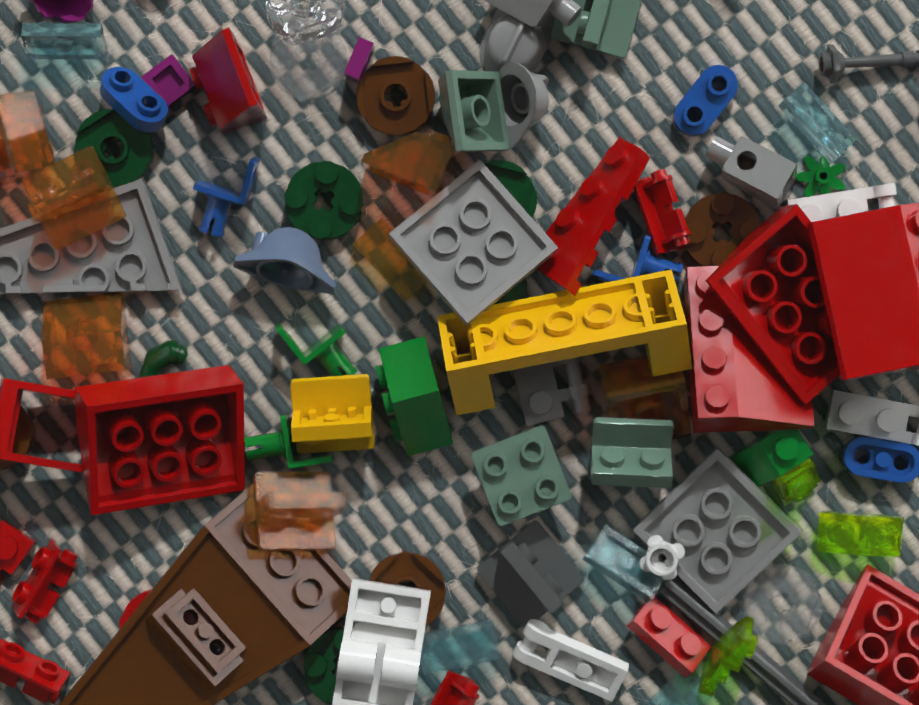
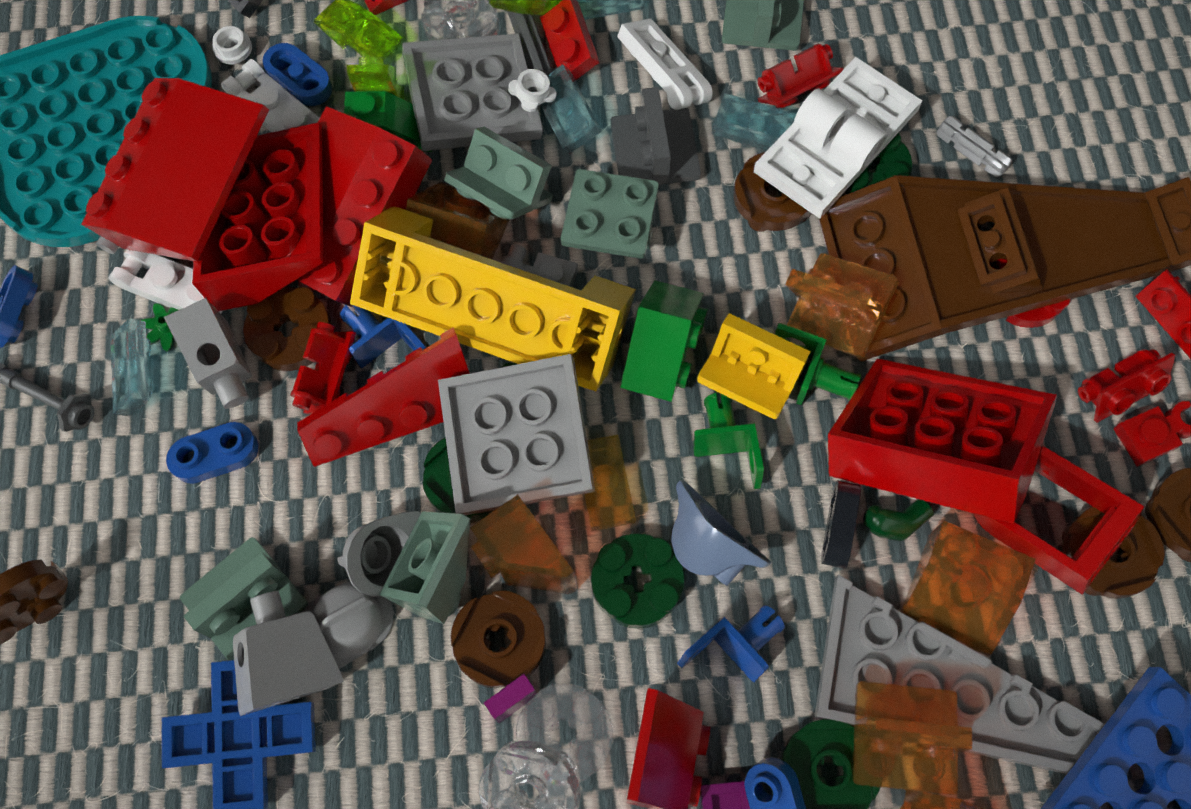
camera: 145 degrees left, 20 degrees down
(199, 331) = (841, 524): none -> black beam

